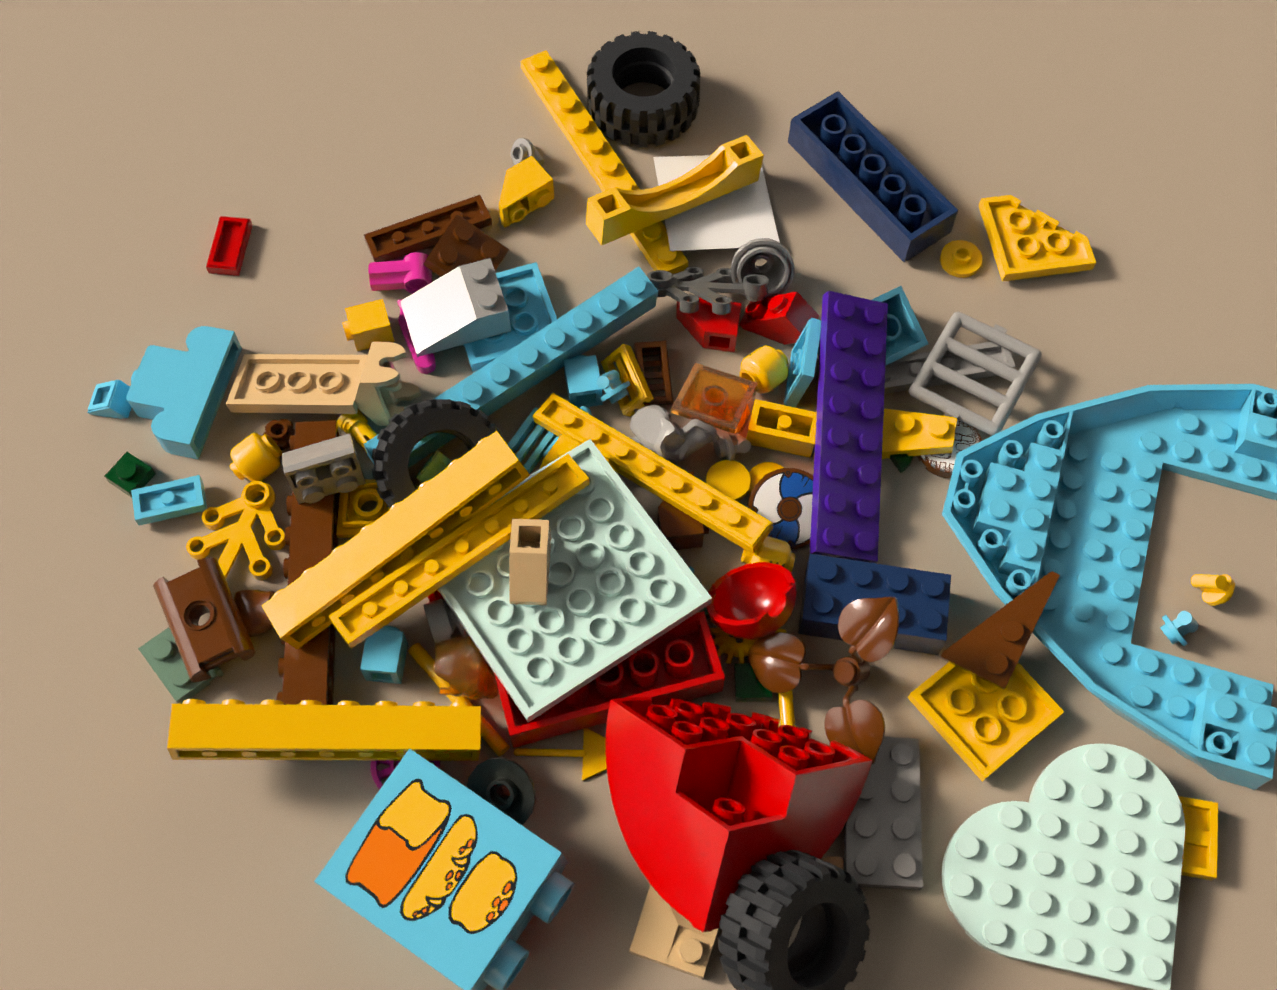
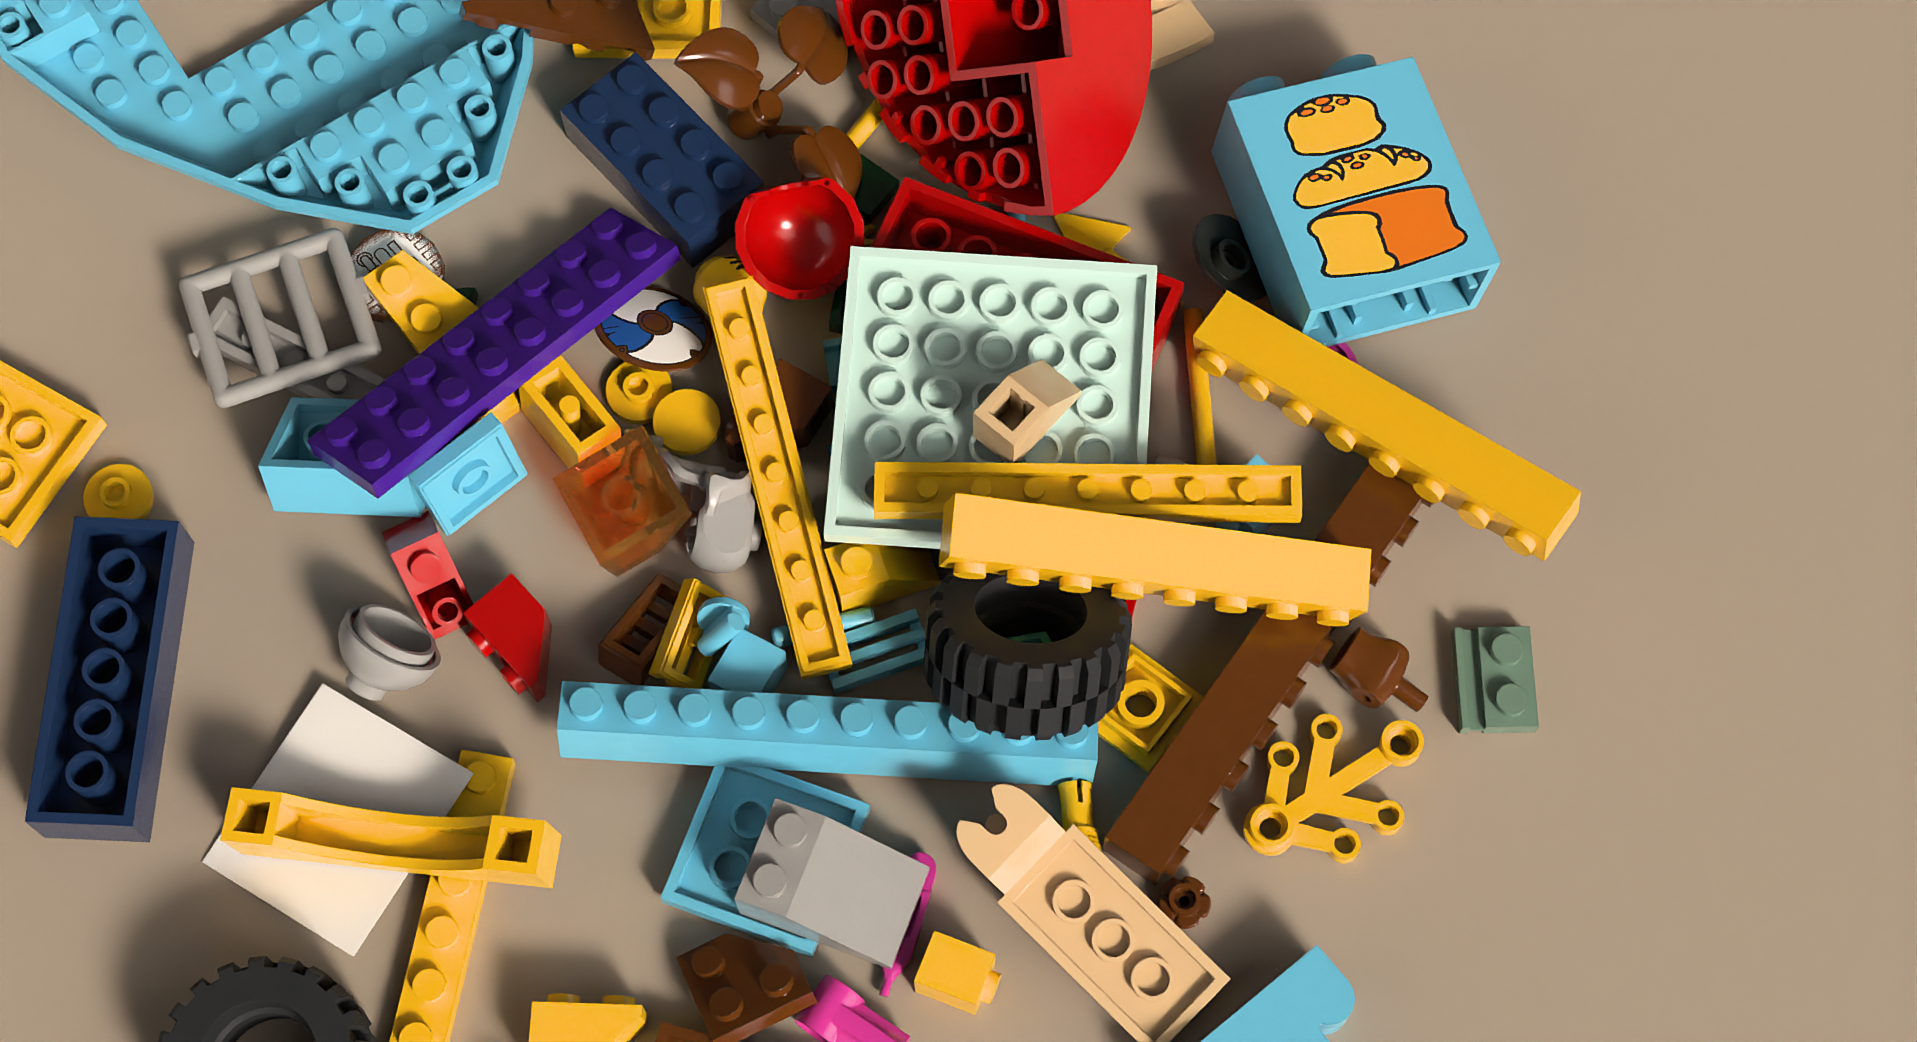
camera: 140 degrees left, 5 degrees up
(129, 474) = (1415, 991): dark green plate -> none
(169, 500) = (1386, 905): medium azure plate -> none
(218, 639) = (1418, 711): reddish brown piece -> none
(255, 457) = (1239, 878): yellow head -> none
(323, 469) = (1173, 745): light grey slope -> none
(465, 669) = (1178, 408): clear orange hair -> none
(707, 288) = (489, 675): dark grey plant -> none
(766, 367) = (516, 516): yellow head -> none

